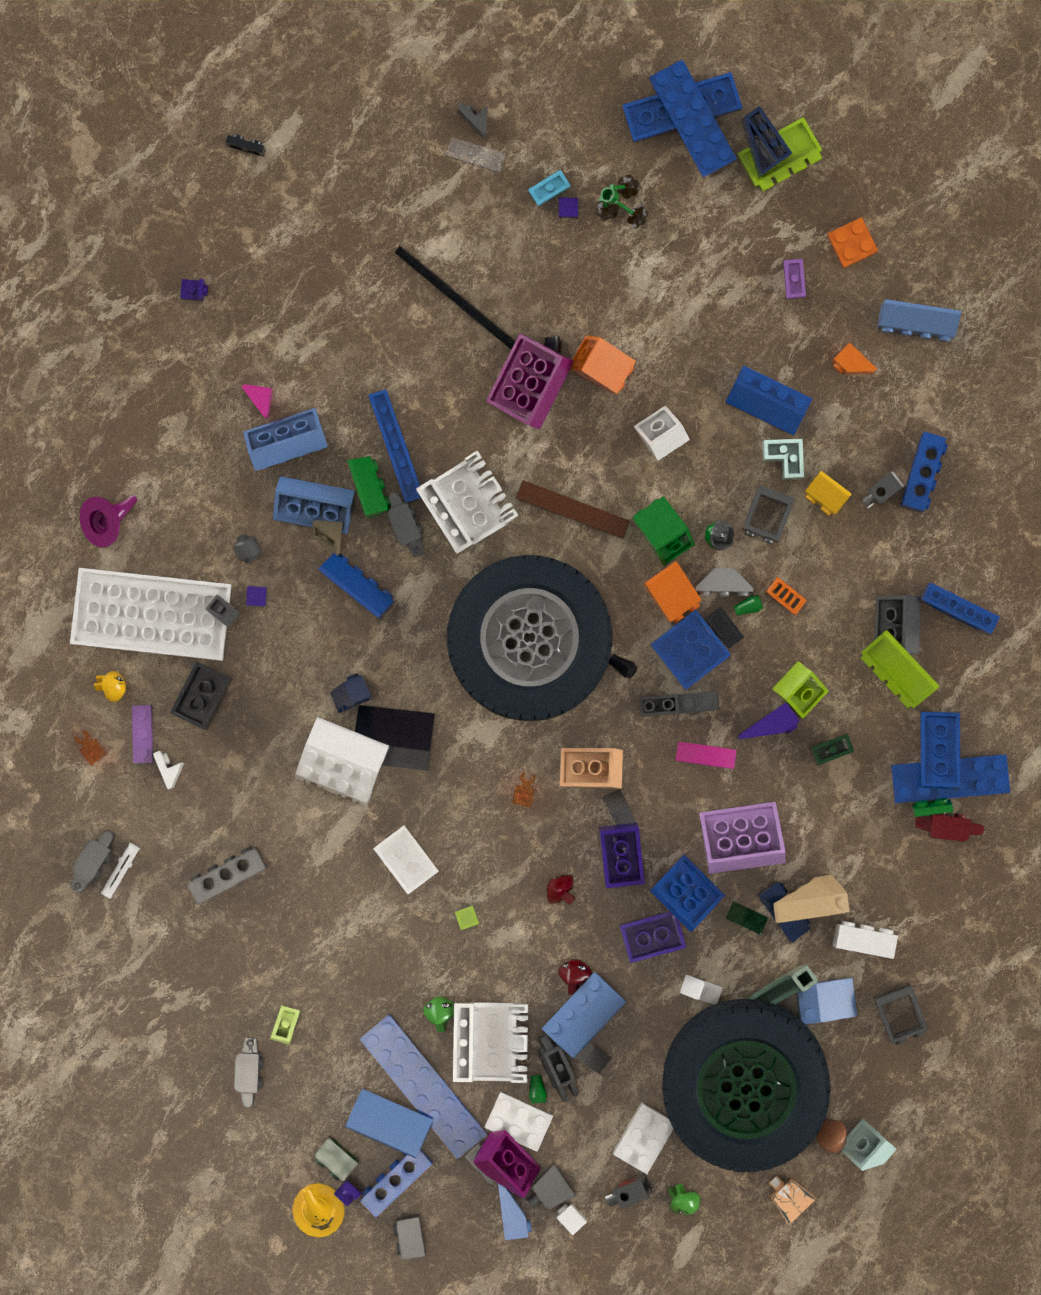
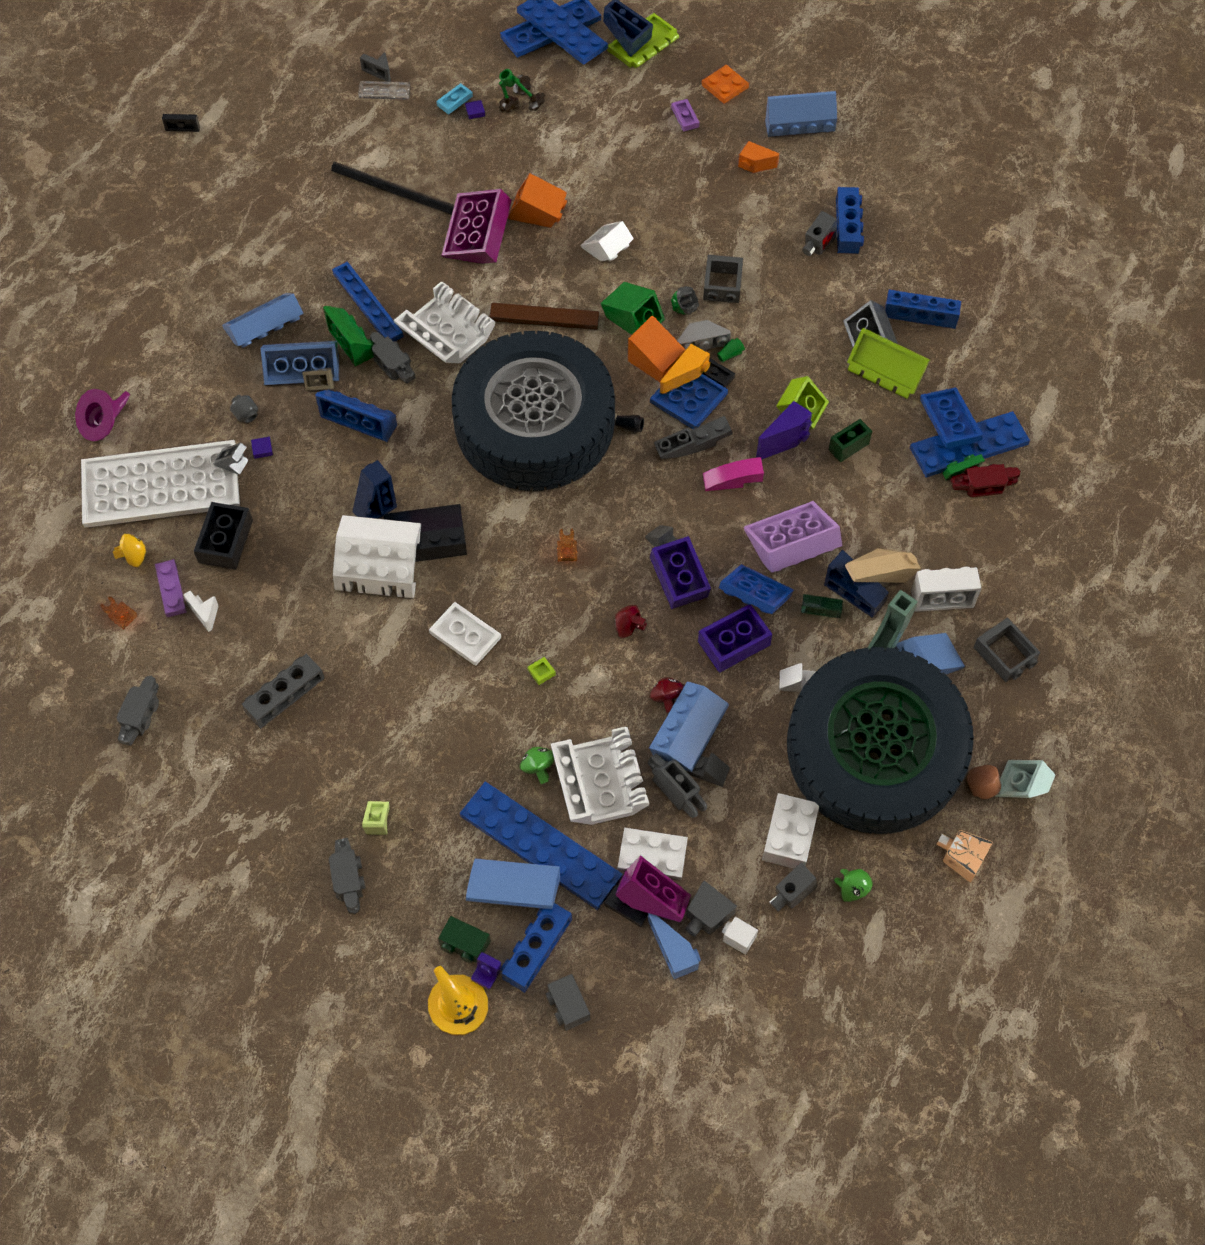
camera: 20 degrees left, 25 degrees down
(131, 850) = (172, 706): white pin -> none
(193, 290) = (154, 231): dark purple bracket -> none
(260, 397) = (230, 292): dark pink slope -> none
(537, 1091) = (663, 817): green cone -> none
(591, 767) = (626, 510): light nougat slope -> none
(699, 622) = (687, 368): none -> light orange slope
(768, 400) = (693, 198): blue slope -> none
(772, 587) = (752, 338): orange slope -> none
(789, 452) = (724, 229): light aqua brick -> none
(827, 494) = (770, 247): yellow slope -> none

